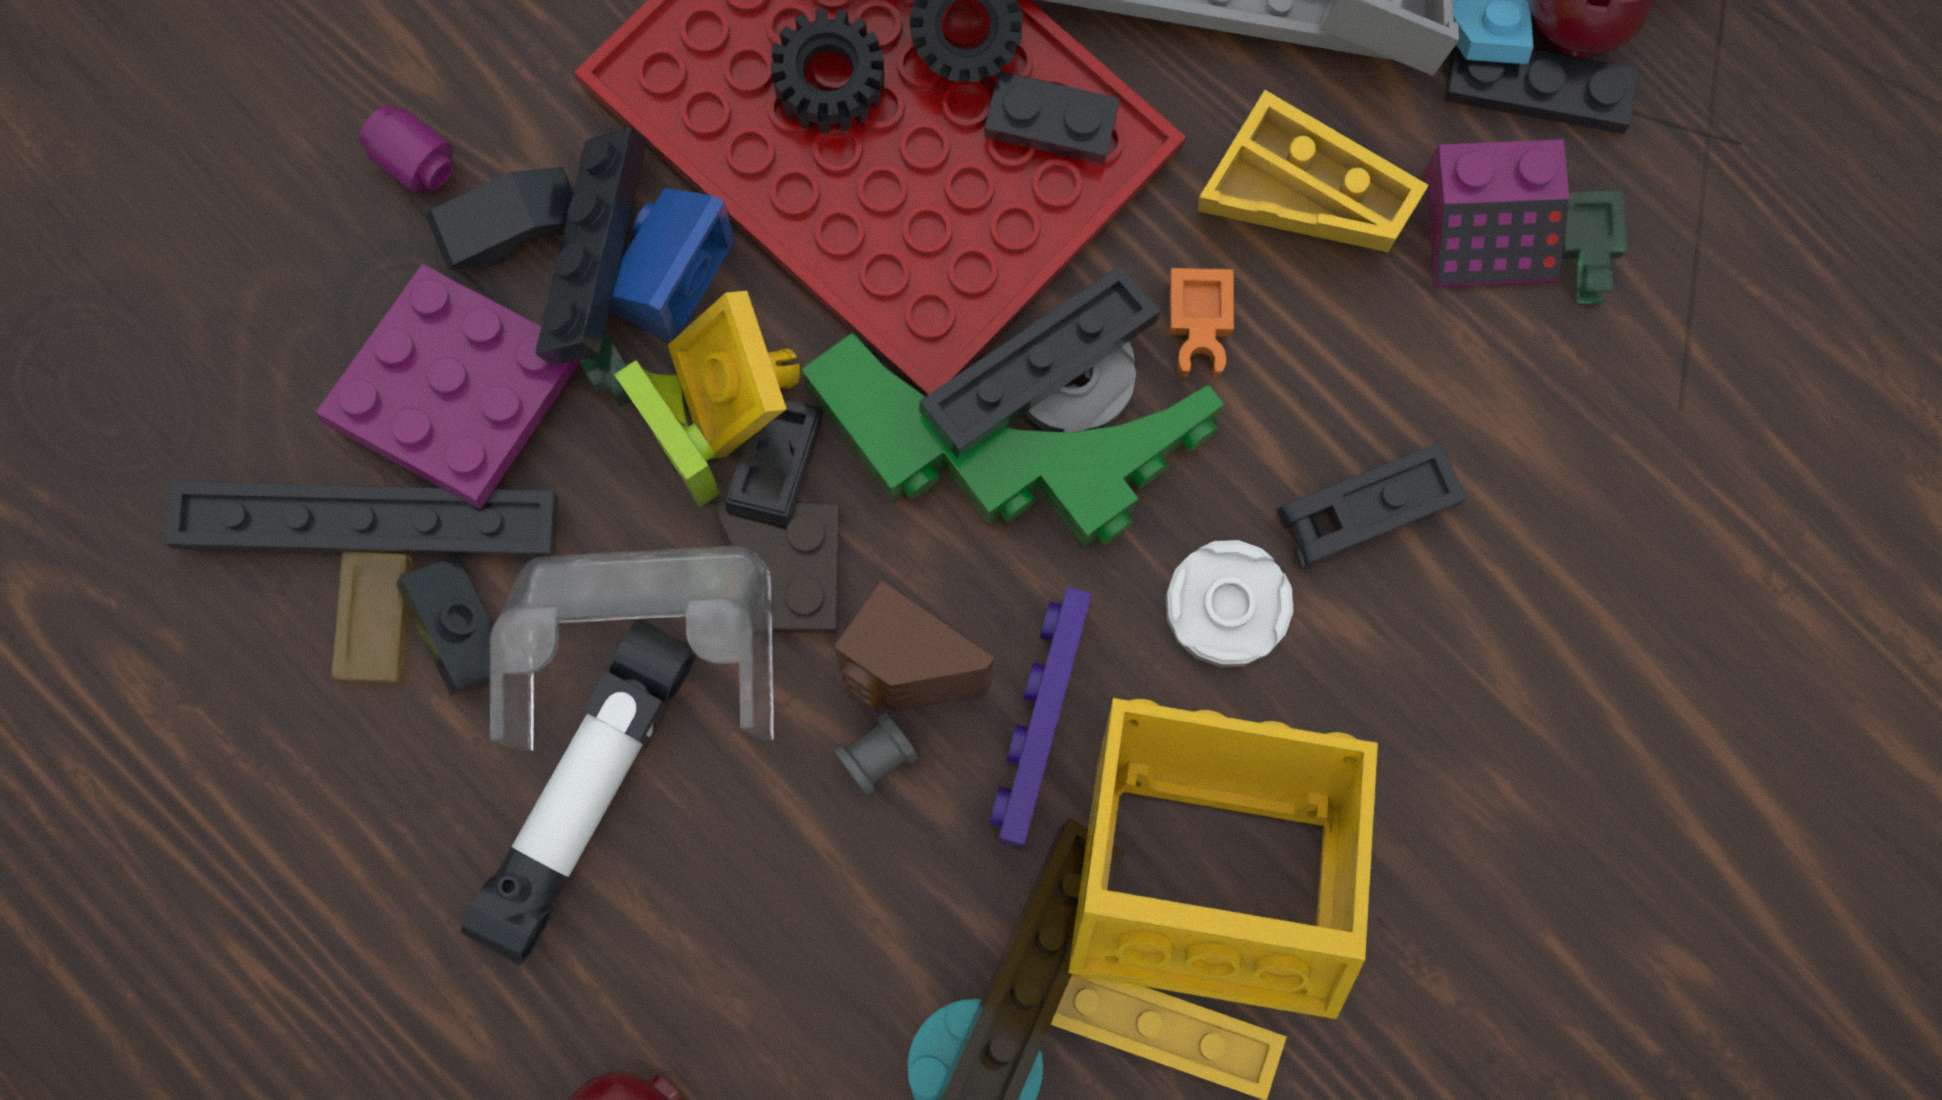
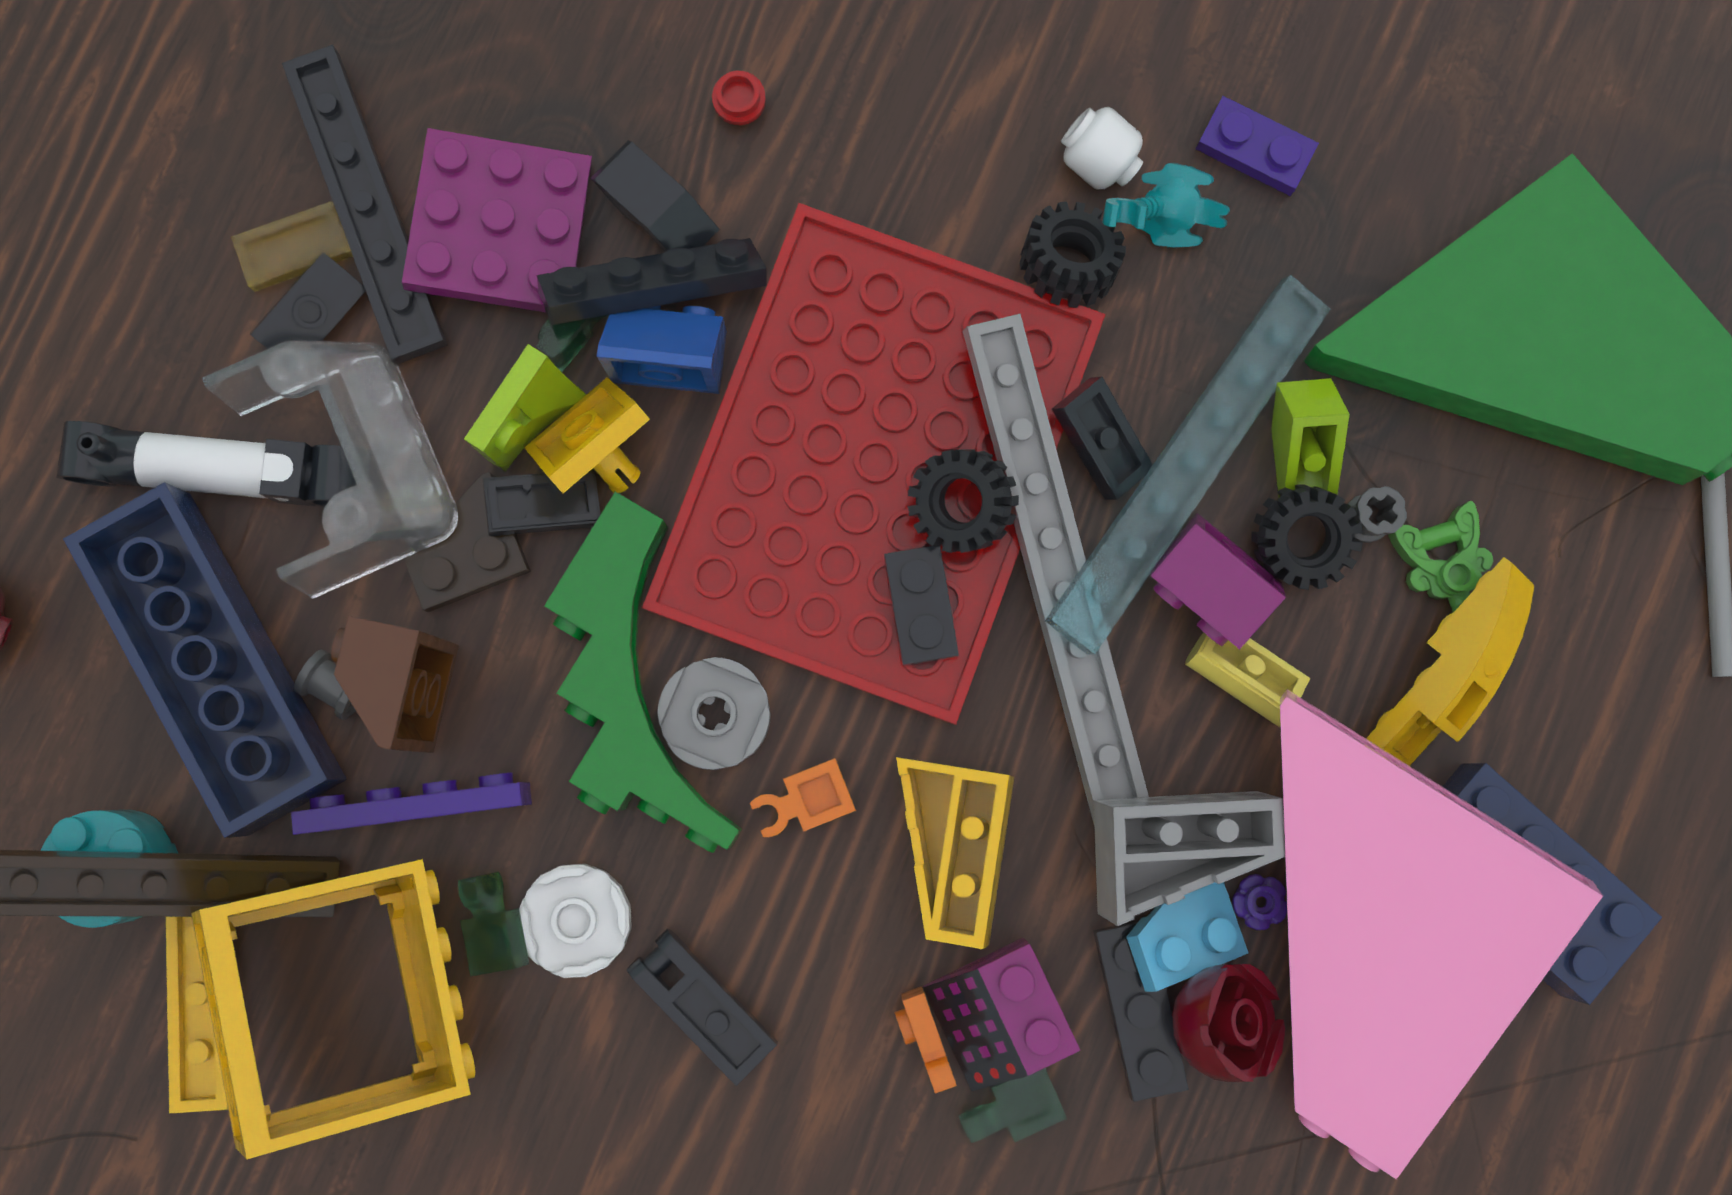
camera: 65 degrees right, 5 degrees up
(407, 149) = (680, 102): magenta brick -> none
(429, 91) = (738, 98): none -> red plate
(792, 870) = (204, 660): none -> dark blue brick
(828, 36) = (884, 372): black tyre -> none
(1038, 361) = (697, 682): black plate -> none
(1210, 684) = (492, 936): none -> clear green plate
(1478, 294) = (918, 1025): none -> orange plate

